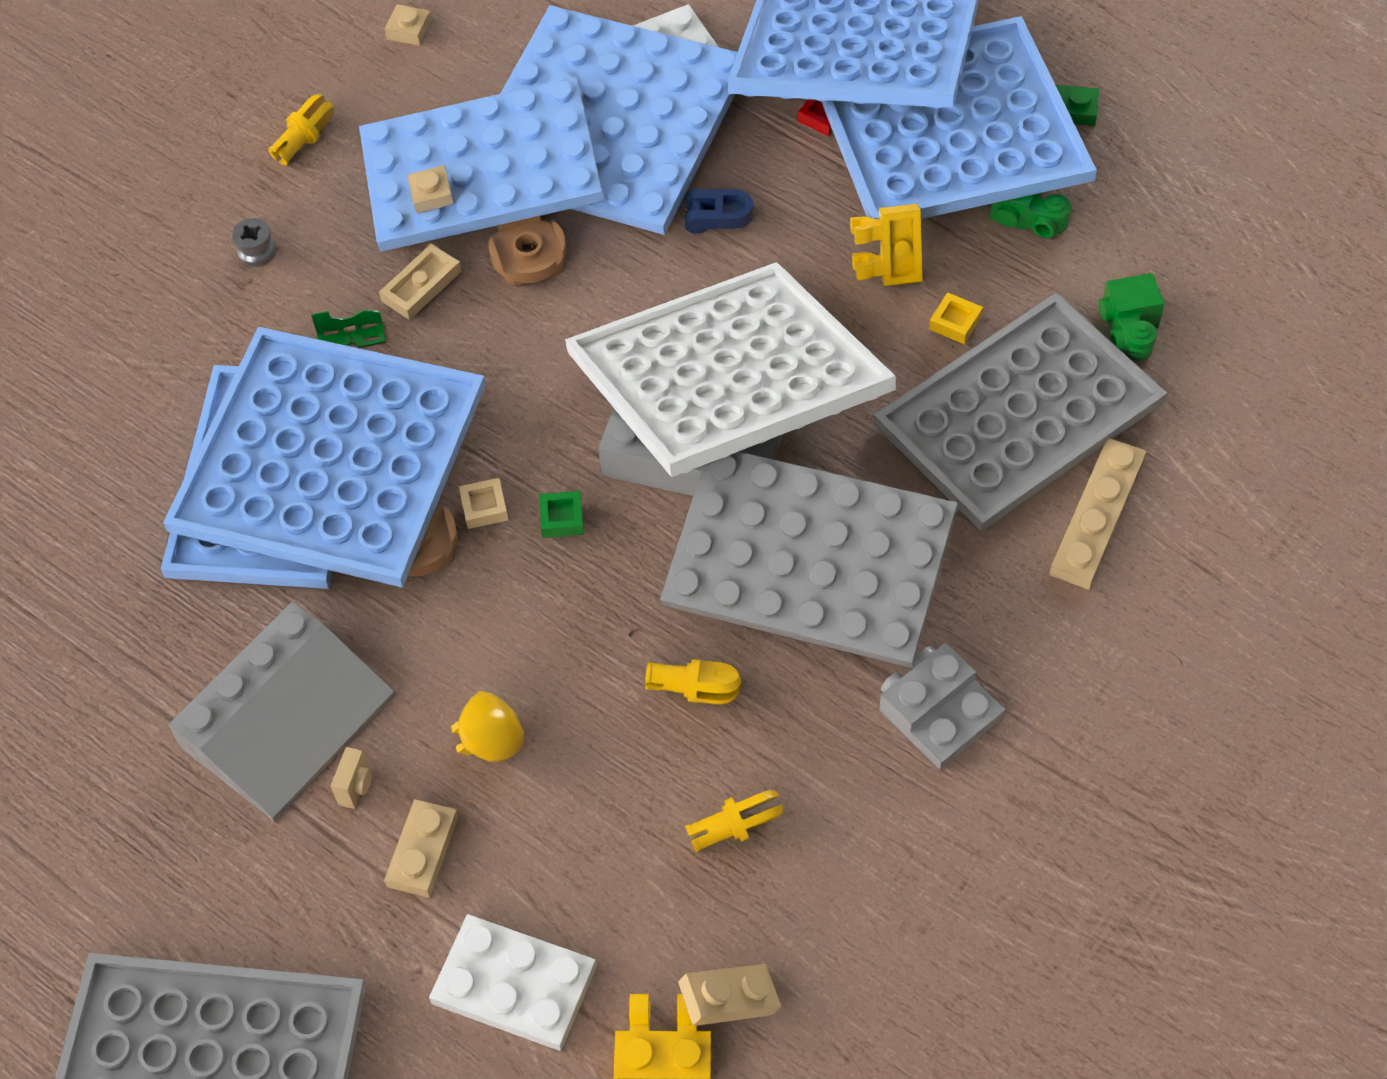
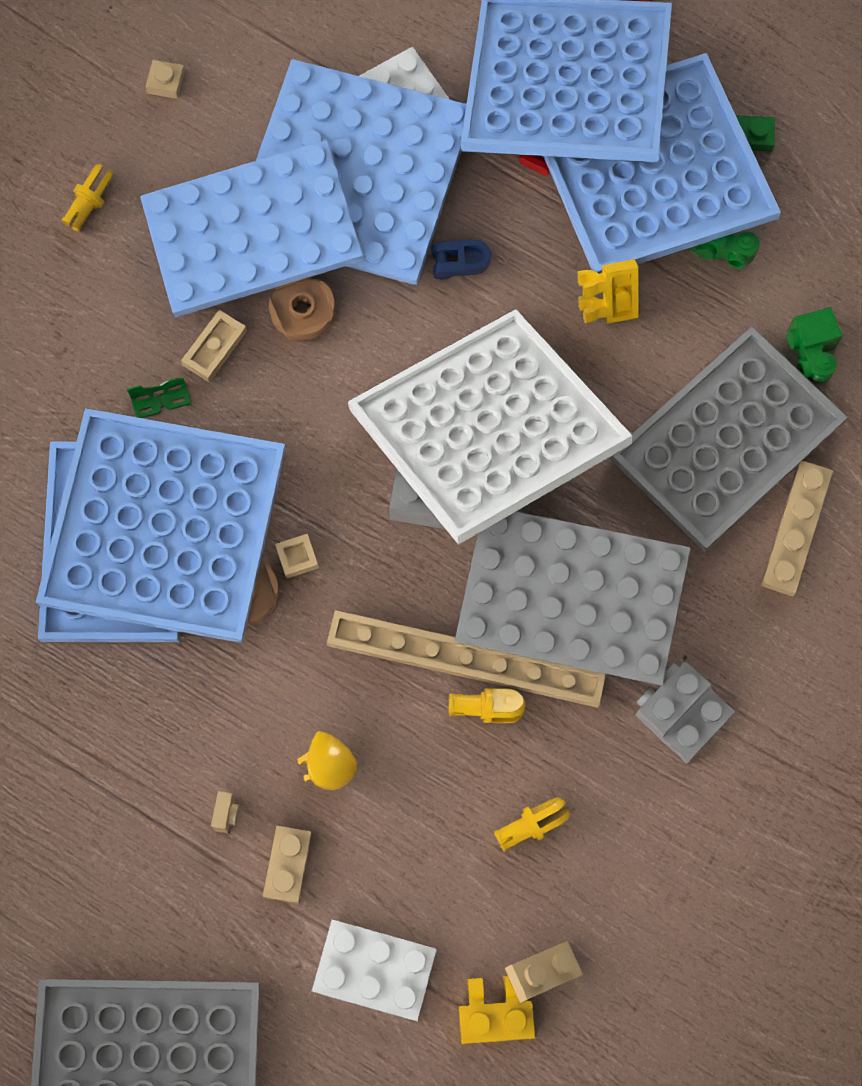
camera: 10 degrees left, 15 degrees up
(253, 252) = (60, 322): flat silver wheel -> none
(281, 711) = (159, 758): light grey slope -> none
(430, 189) = (214, 262): tan plate -> none
(561, 514) = (362, 562): green plate -> none
(673, 629) = (445, 655): none -> tan plate
(955, 318) = (669, 354): yellow plate -> none

